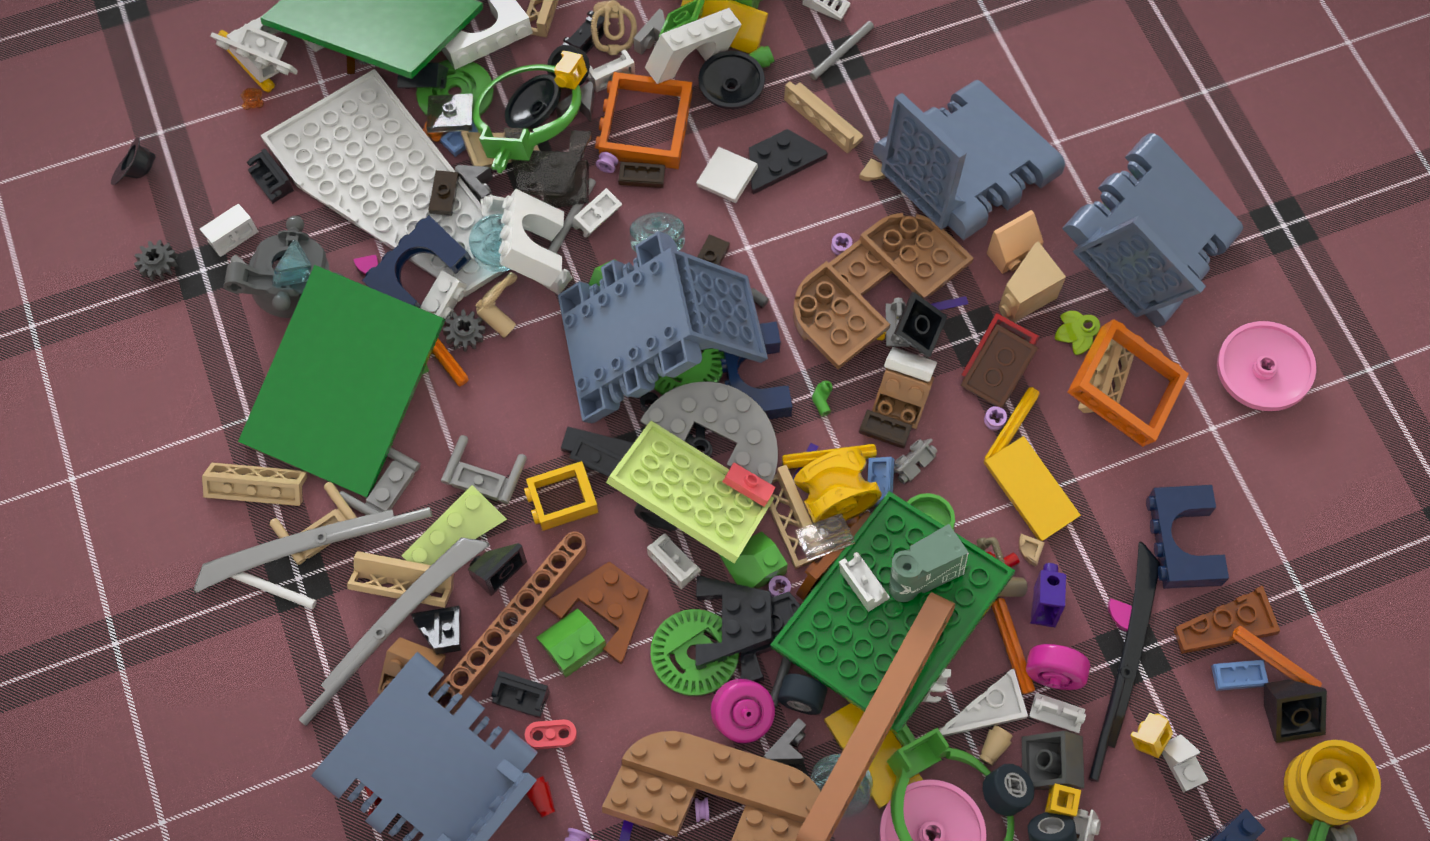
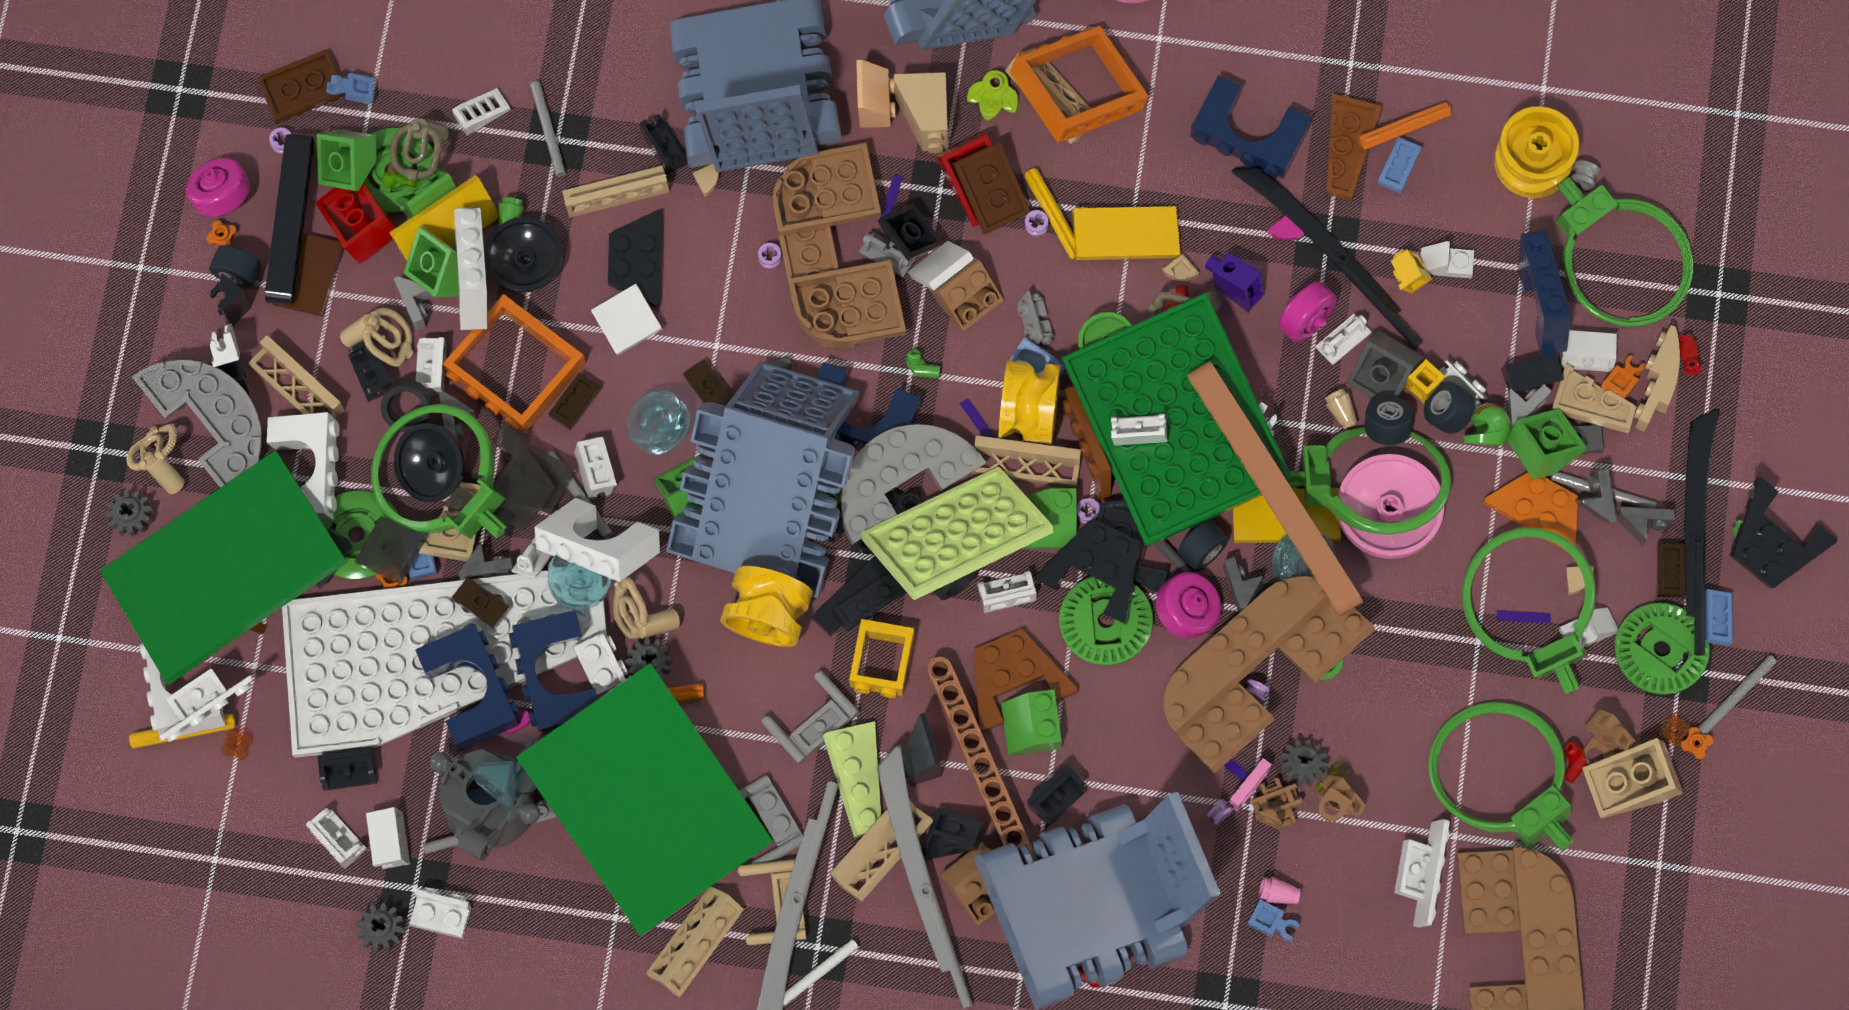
camera: 55 degrees left, 5 degrees up
(135, 163) = (244, 901): black piece -> none
(188, 296) = (441, 913): none -> white bracket
(212, 195) = (336, 837): none -> white hinge
(364, 243) = (468, 650): none -> dark blue arch
(549, 384) = (767, 606): none -> yellow piece
(551, 732) = (1109, 788): coral plate -> none
(570, 70) = (427, 403): yellow brick -> none
(606, 162) = (539, 427): lavender bush -> none
(749, 484) = (976, 480): coral plate -> none
(802, 459) = (985, 394): yellow axle -> none
(824, 537) = (1071, 440): clear plate -> none
(877, 127) = (663, 144): none -> black hinge
(885, 429) = (988, 327): dark brown plate -> none
(927, 564) = (1162, 362): sand green piece -> none
(996, 706) = (1307, 389): white wing -> none
(1012, 645) = (1267, 341): orange axle -> none
(1295, 710) = (1456, 140): black slope -> none

